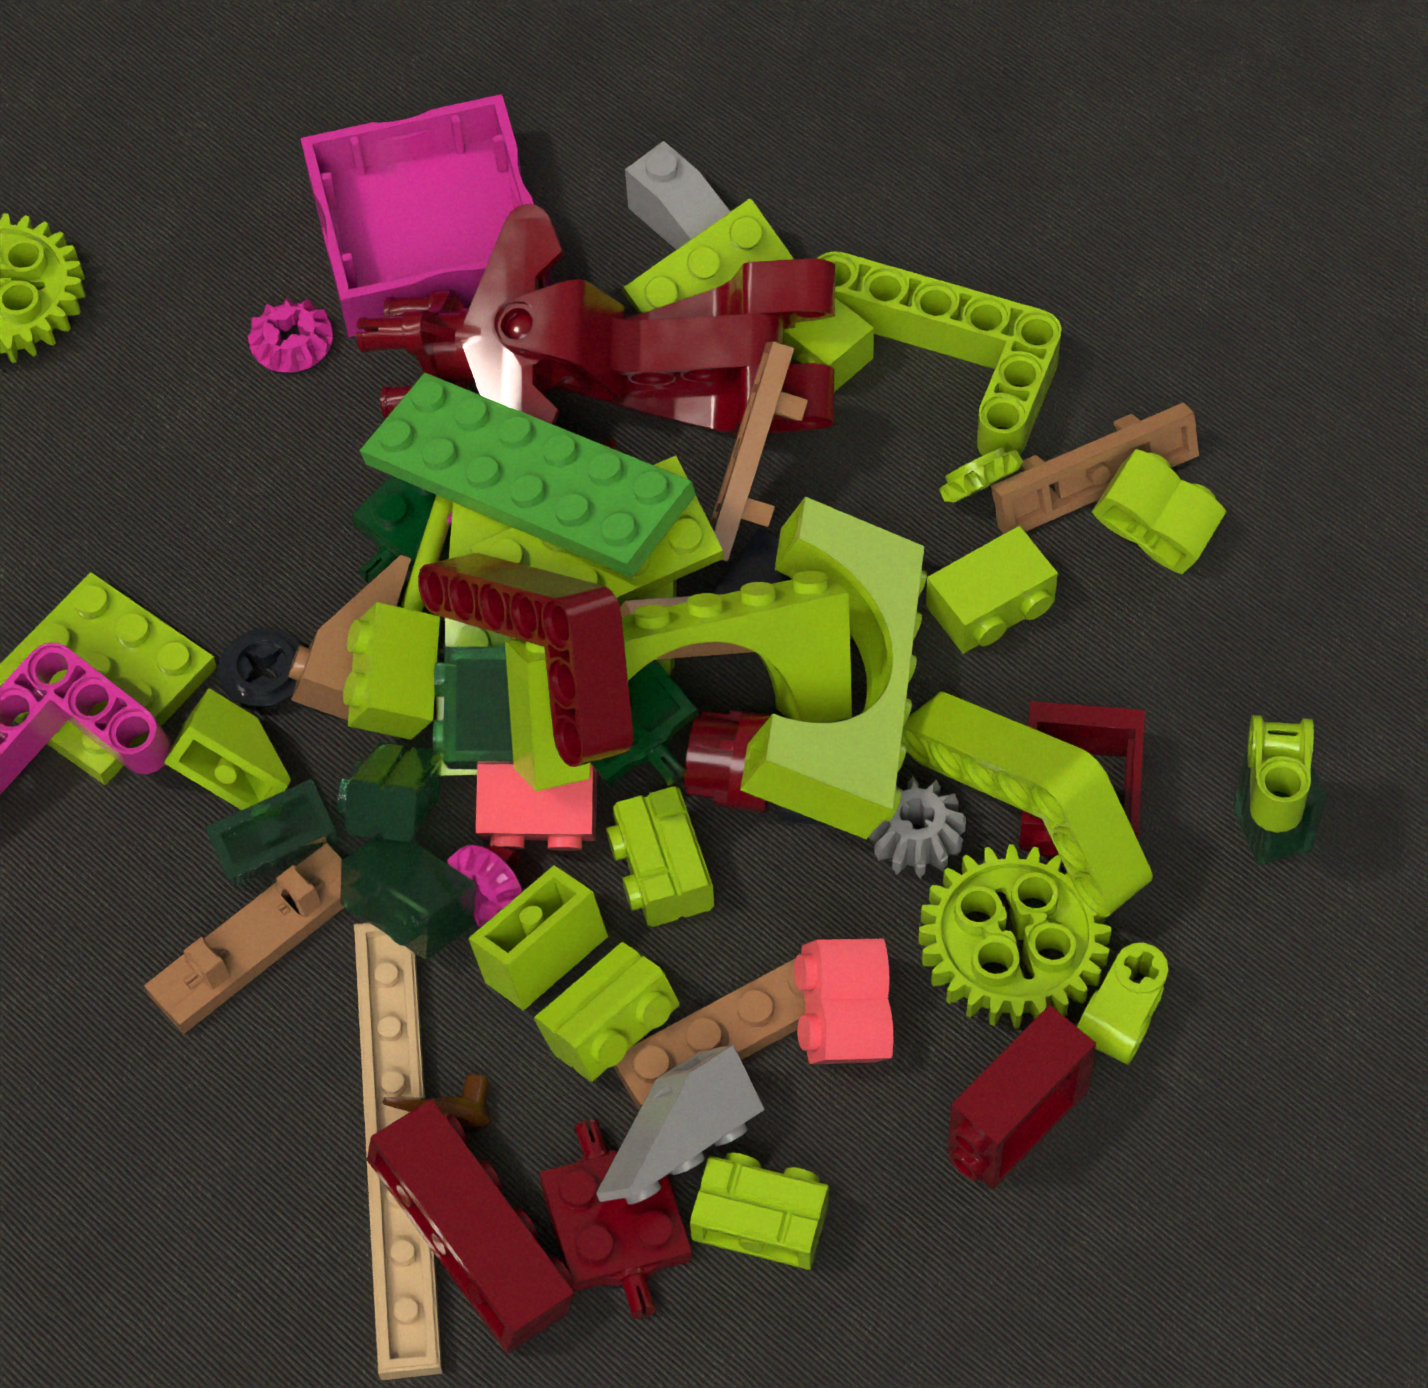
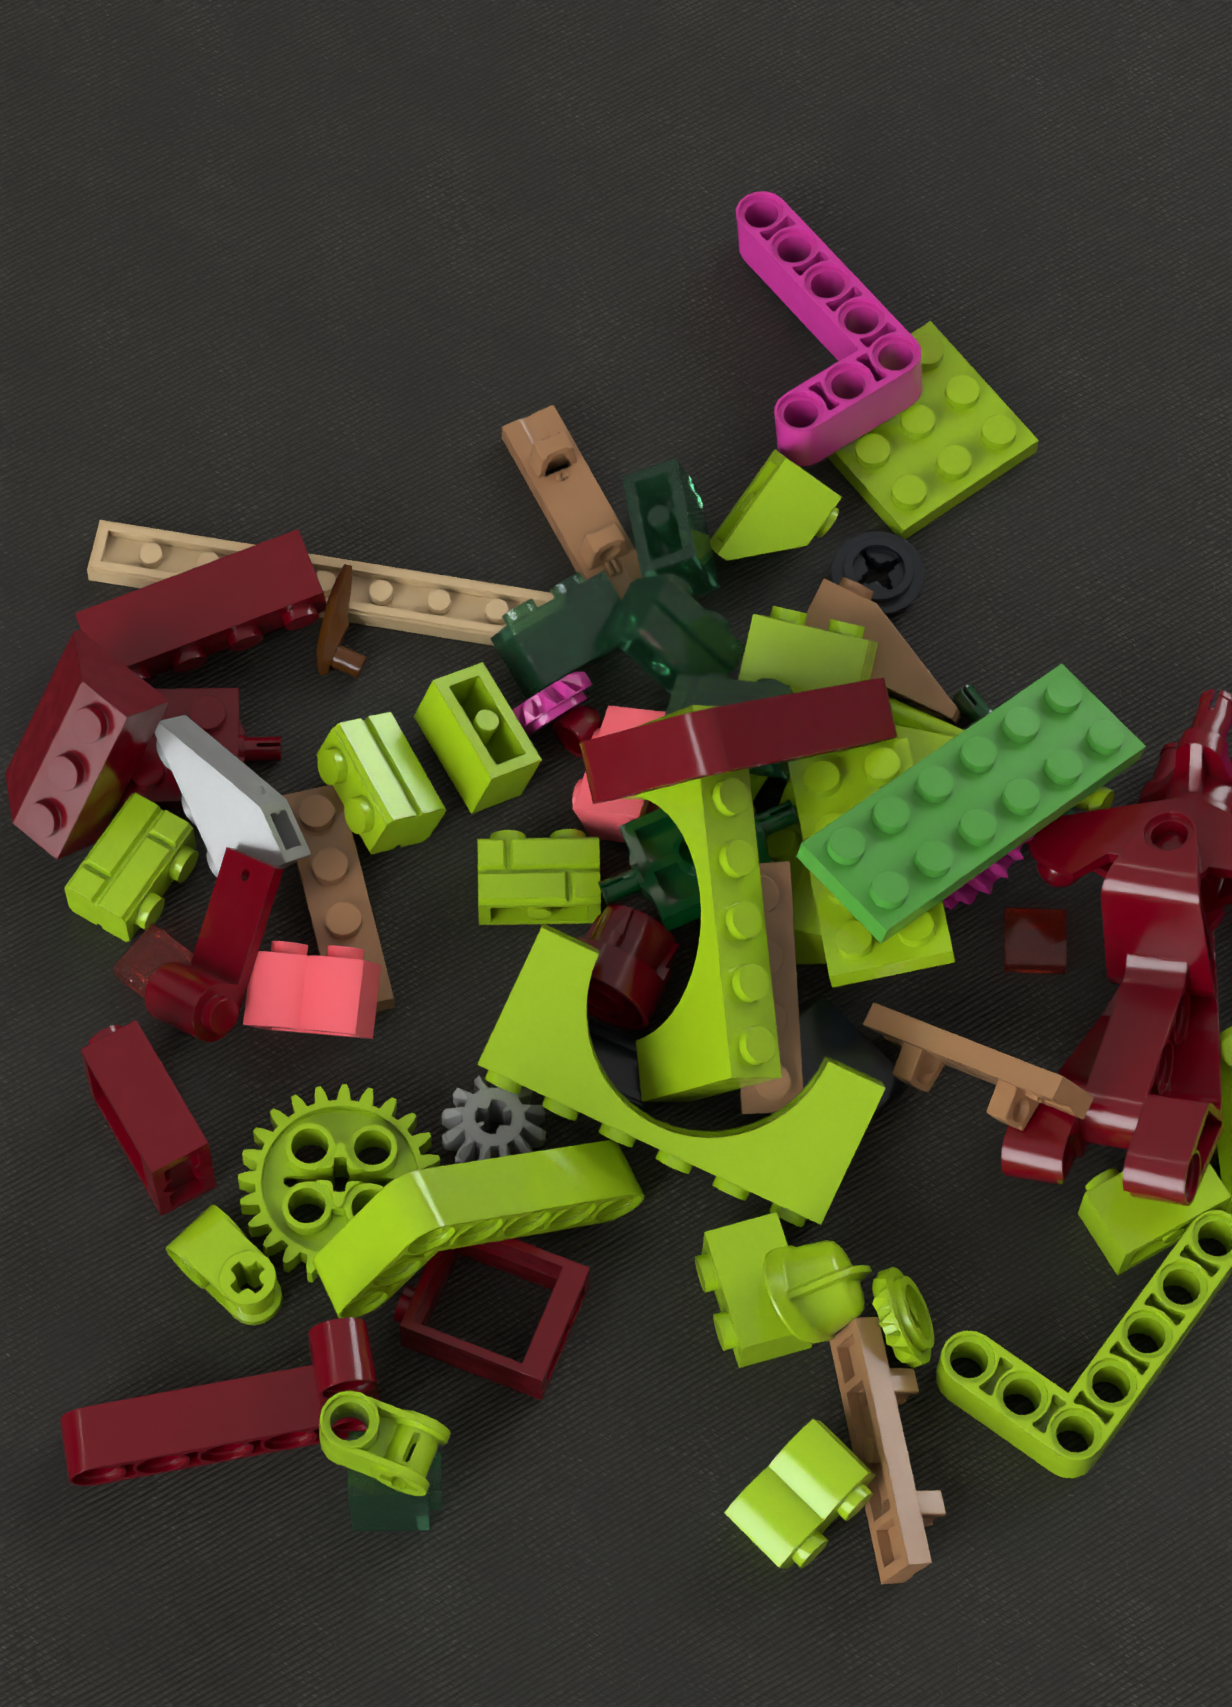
camera: 100 degrees right, 5 degrees up
(667, 1272) = (81, 748): none -> dark red slope
(830, 1088) = (209, 991): none -> dark red door
(850, 1165) = (146, 956): none -> clear red tile
(981, 522) = (814, 1289): none -> lime piece
(1214, 882) = (222, 1417): none -> dark red beam

